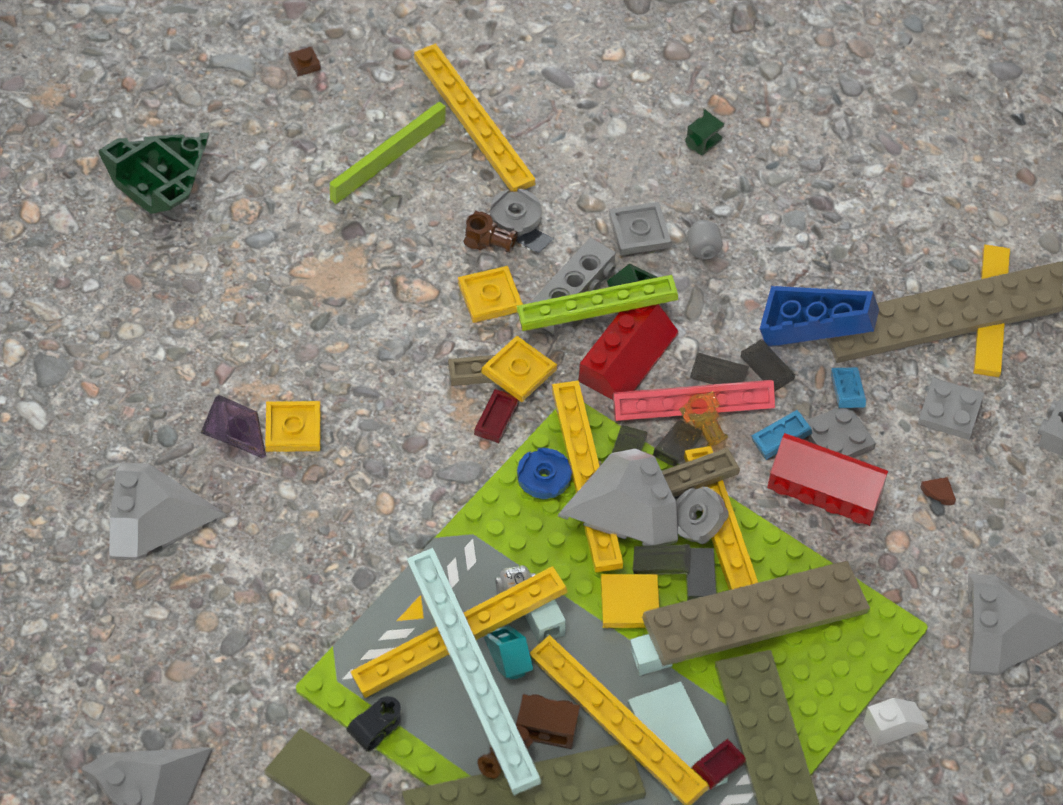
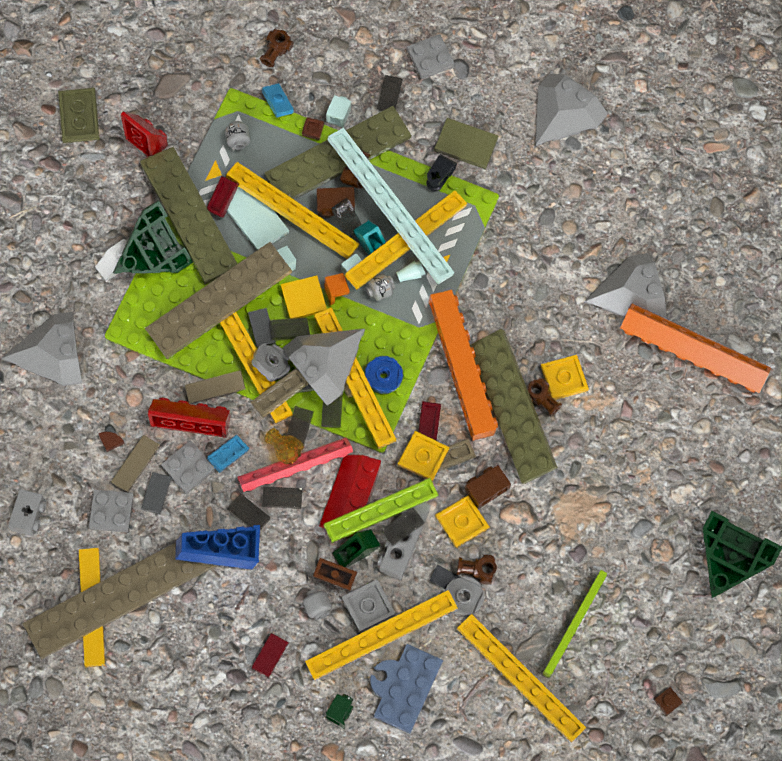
camera: 165 degrees right, 15 degrees up
(101, 408) = (695, 348): none -> orange brick
(234, 426) = (600, 356): clear purple slope -> none
(333, 402) = (544, 397): none -> reddish brown connector
(379, 399) = (513, 407): none -> olive plate
(430, 462) = (462, 365): none -> orange brick
(445, 317) = (487, 486): none -> reddish brown brick
(468, 598) = (411, 271): none -> light aqua cone
(538, 683) = (346, 217): none -> clear smoke tile
(573, 282) = (403, 526): none -> clear smoke tile
(579, 596) = (335, 286): none -> orange panel
(617, 144) = (405, 687): none -> sand blue plate
(631, 190) = (381, 635): none -> yellow plate
(672, 257) = (335, 574): none -> reddish brown brick
(775, 210) = (270, 655): none -> dark red tile
(782, 517) = (215, 387): none -> dark tan tile
(838, 704) = (153, 245): none -> dark green wedge
(848, 387) = (187, 504): dark azure plate -> none
(887, 414) = (156, 493): none -> dark grey tile
(911, 453) = (135, 464): none -> dark tan tile

